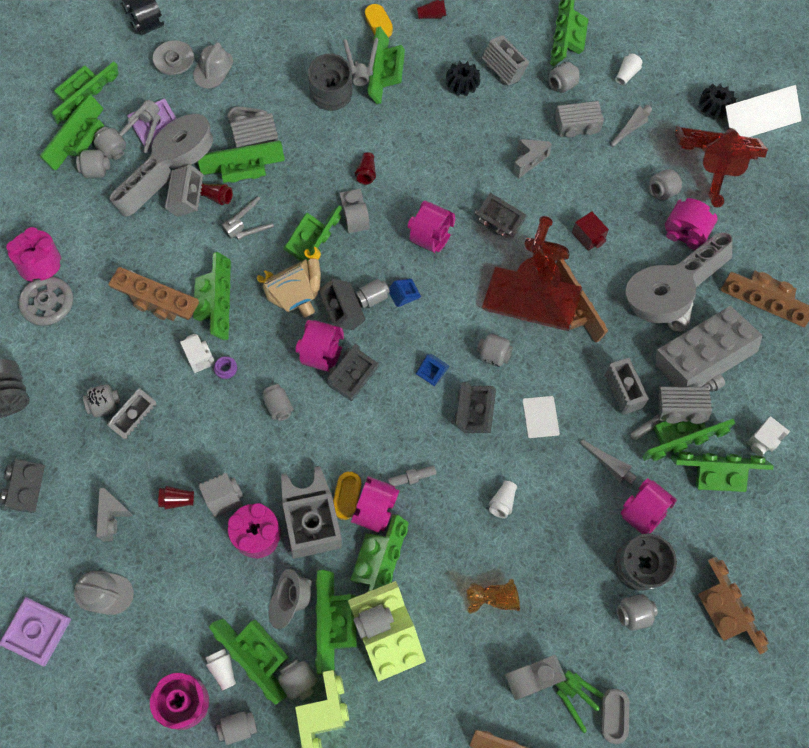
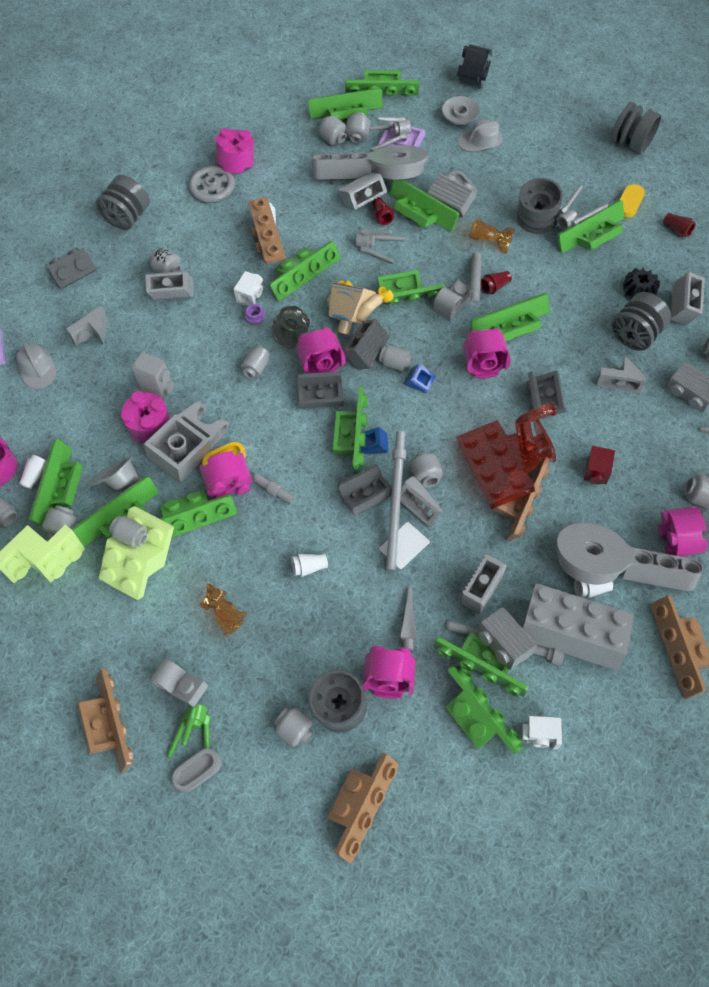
camera: 55 degrees right, 5 degrees down
(174, 497) = (129, 351): dark red cone -> none
(273, 349) = (289, 325): none -> clear smoke hair
(317, 136) = (488, 232): none -> clear orange animal
(352, 179) = (475, 279): none -> light grey piece
(411, 379) = (348, 431): none -> bright green bracket
(415, 186) = (516, 318): none -> bright green bracket
(473, 359) = (398, 456): none -> light grey bar
(499, 104) = (641, 321): none -> dark grey wheel
(504, 371) = (414, 489): none -> light grey slope

